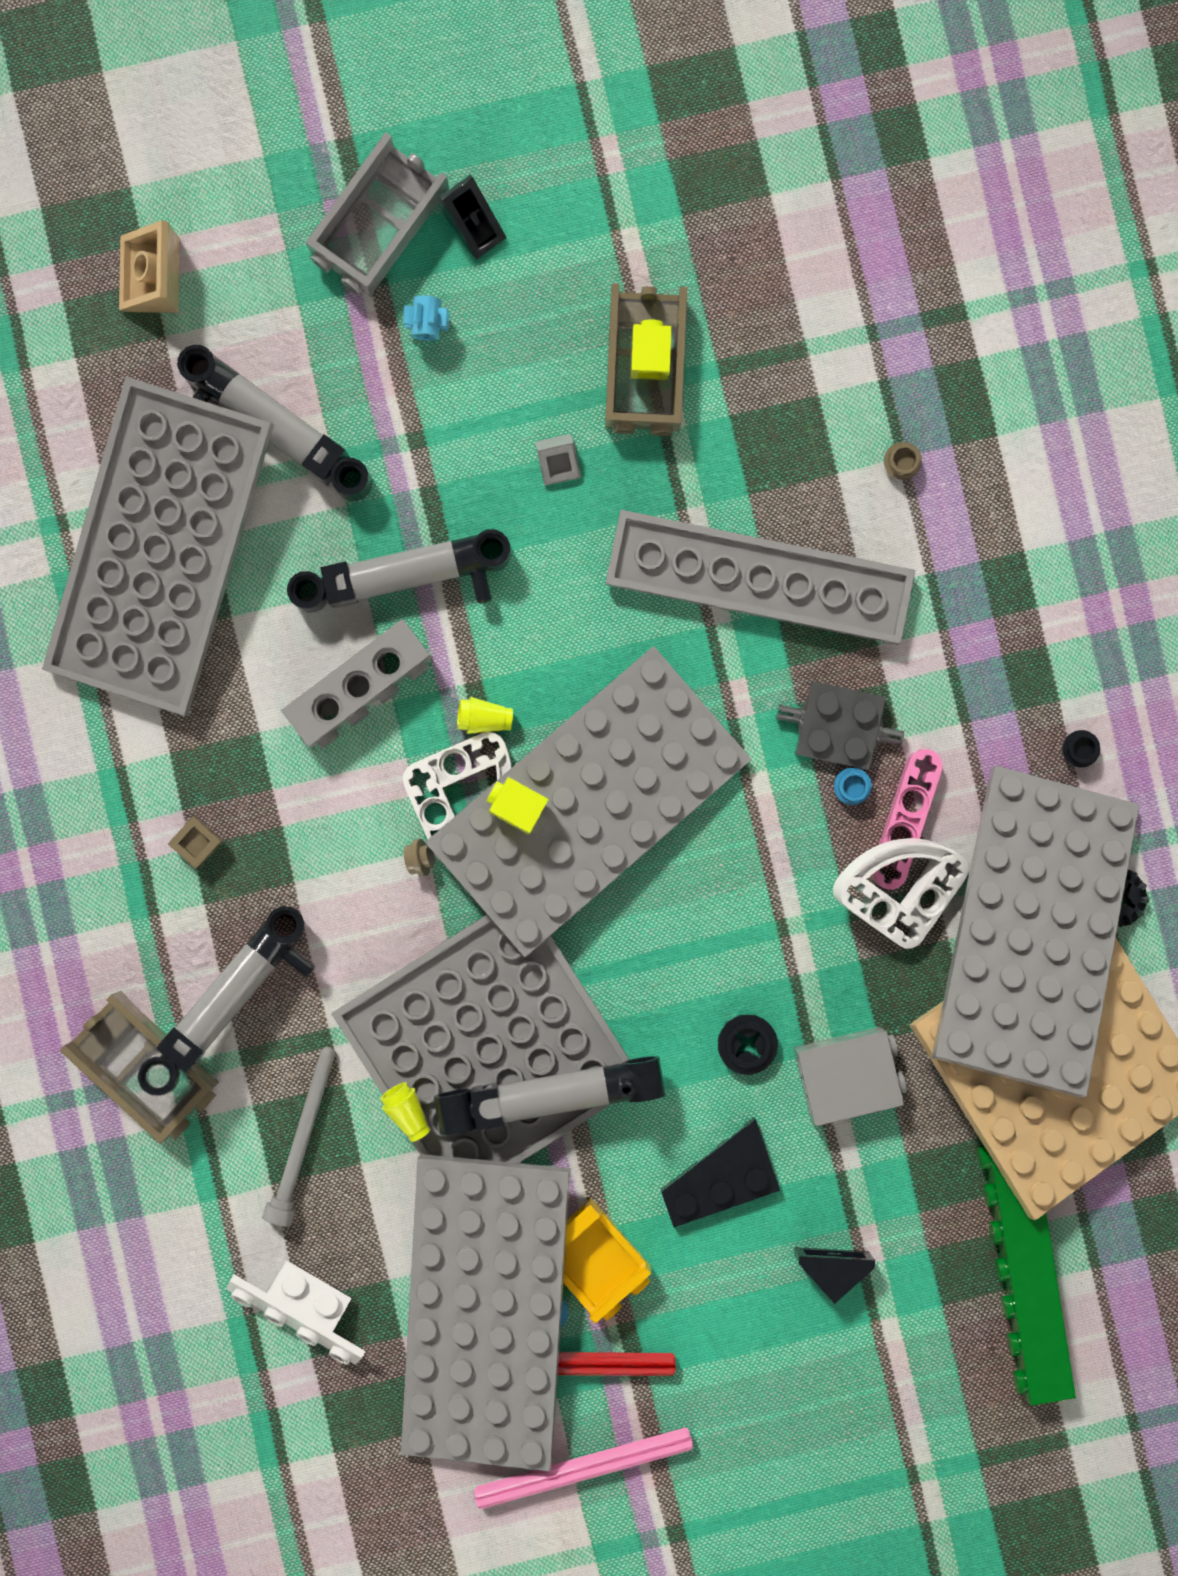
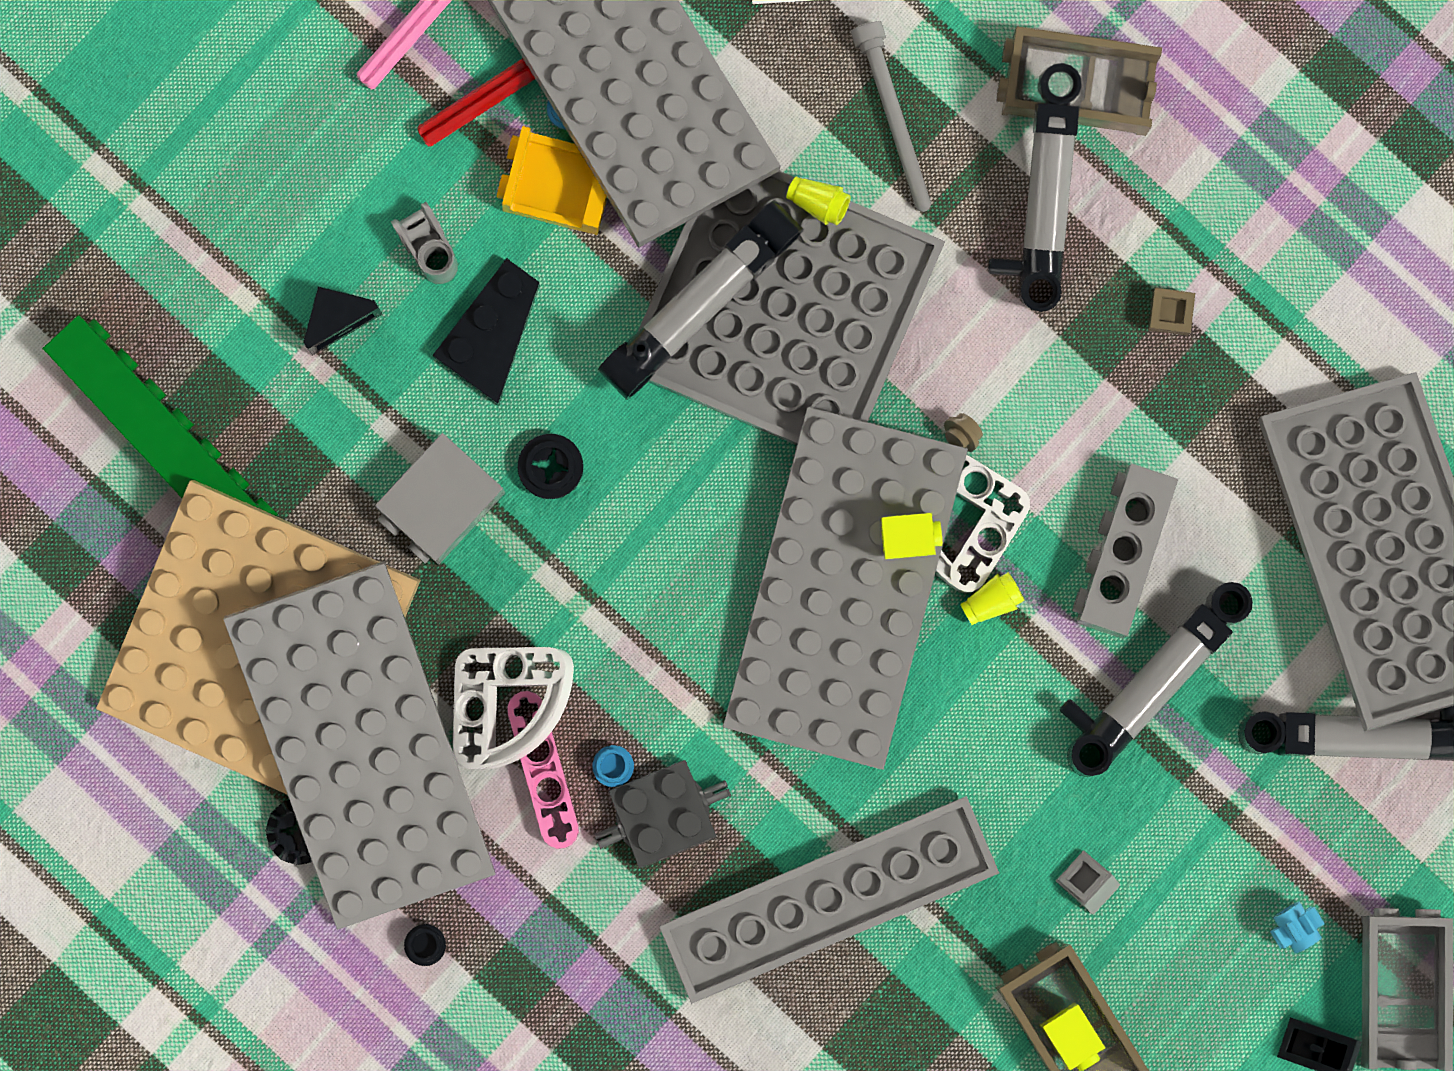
camera: 150 degrees right, 5 degrees down
(726, 1285) = (423, 239): none -> light grey piece

